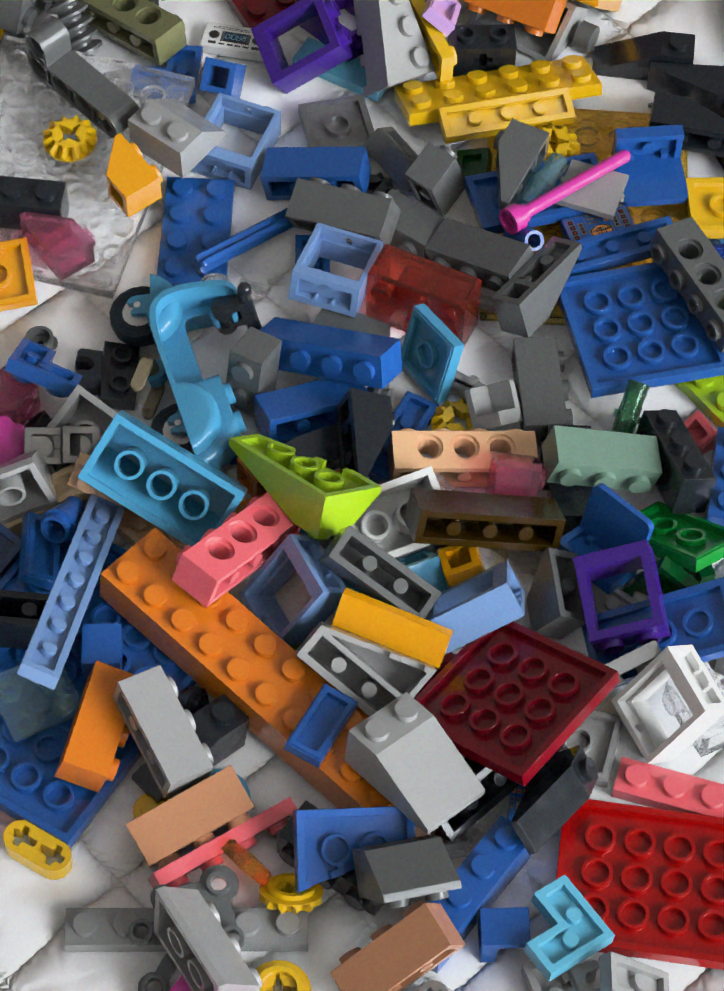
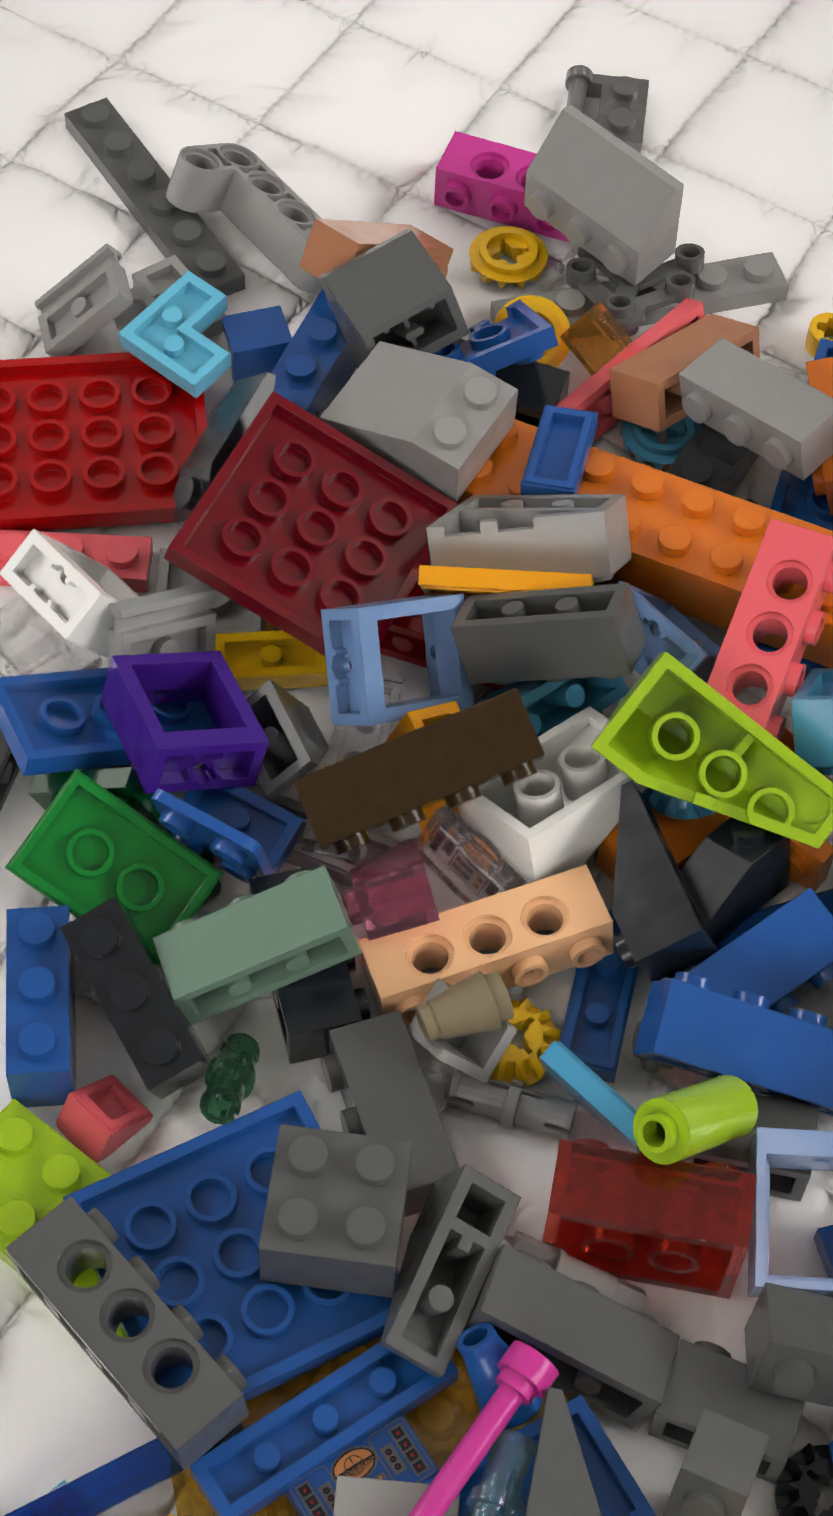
camera: 165 degrees right, 0 degrees up
(390, 301) = (695, 1119): none -> lime brick
(492, 395) = (466, 1008): none -> dark tan cone
(589, 309) = (335, 1211): none -> dark grey brick

